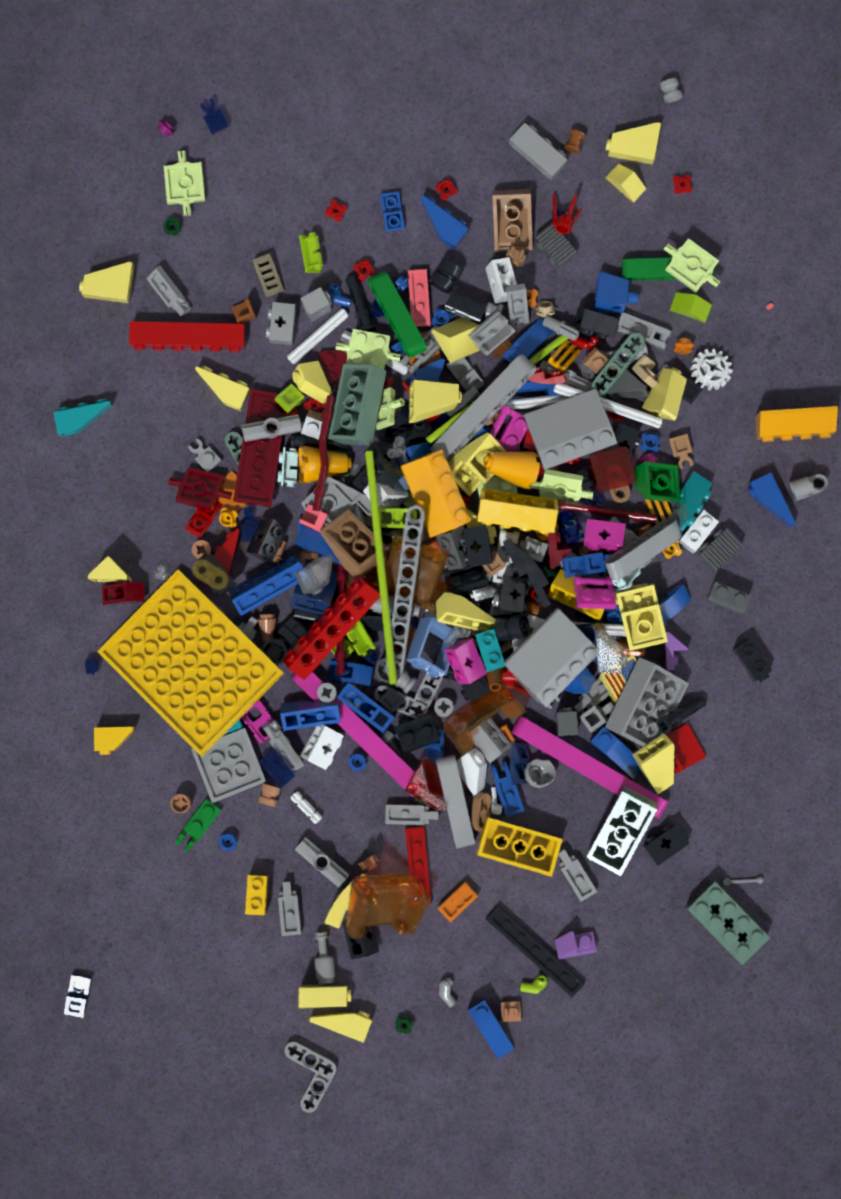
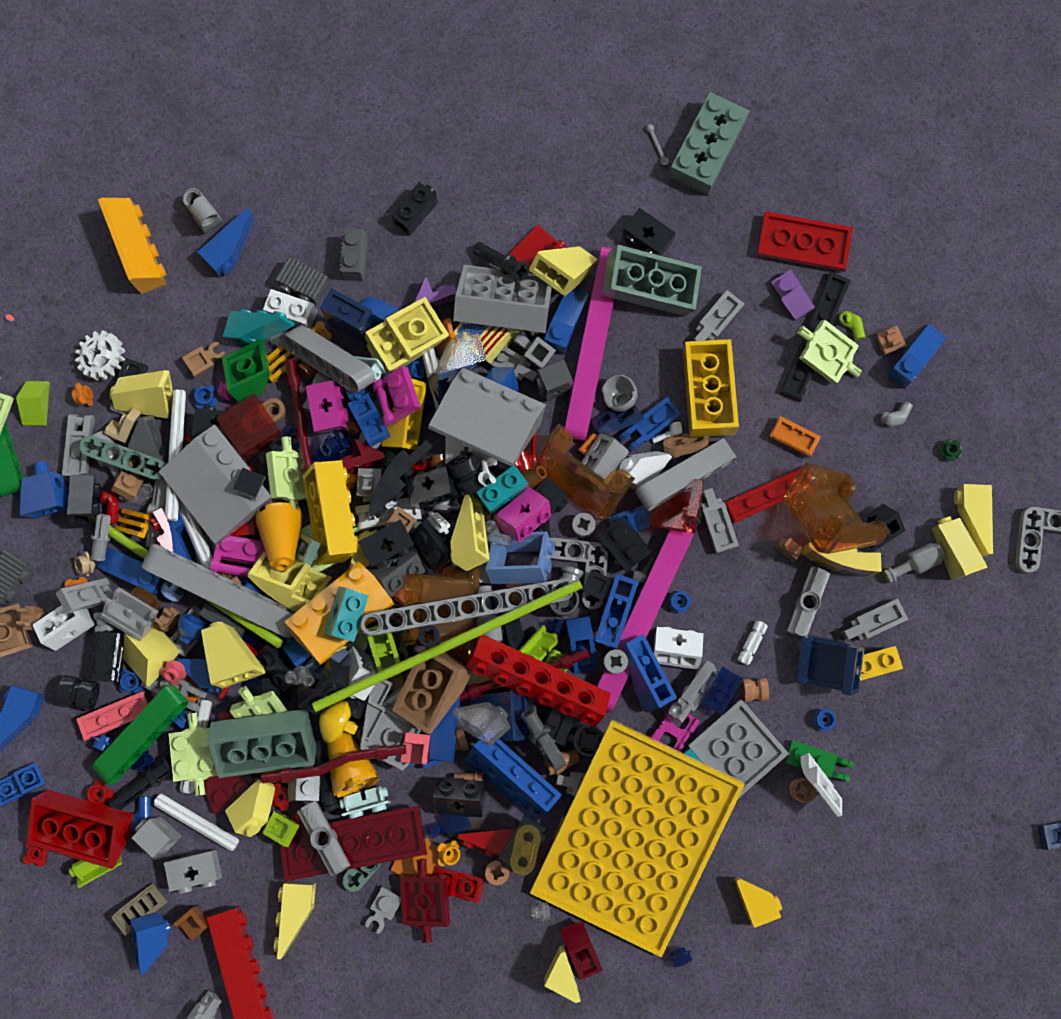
camera: 110 degrees left, 5 degrees down
(180, 817) = (821, 784): none -> white slope
(243, 276) = (148, 939): none -> blue slope
(268, 859) = (830, 664): none -> dark blue panel
(283, 617) = (543, 740): none -> dark grey pin
(342, 248) = (78, 828): none -> red slope
(354, 463) = (335, 721): none -> yellow piece
(386, 555) = (428, 628): none -> black bush
(430, 497) = (346, 614): none -> teal brick
(435, 353) = (173, 672): none -> coral plate
(465, 377) = (190, 628): none -> blue brick
(480, 361) = (168, 619): none -> medium nougat plate
(494, 484) = (307, 549): none -> sand green plate
(499, 368) = (172, 591): none -> light blue tile
(503, 637) = (483, 476): none -> white hand
(516, 955) = (829, 352): none -> yellowish green plate
(559, 455) = (249, 483): none -> black tile
(617, 972) = (804, 241): none -> red plate
(673, 576) = (347, 315): none -> dark blue panel

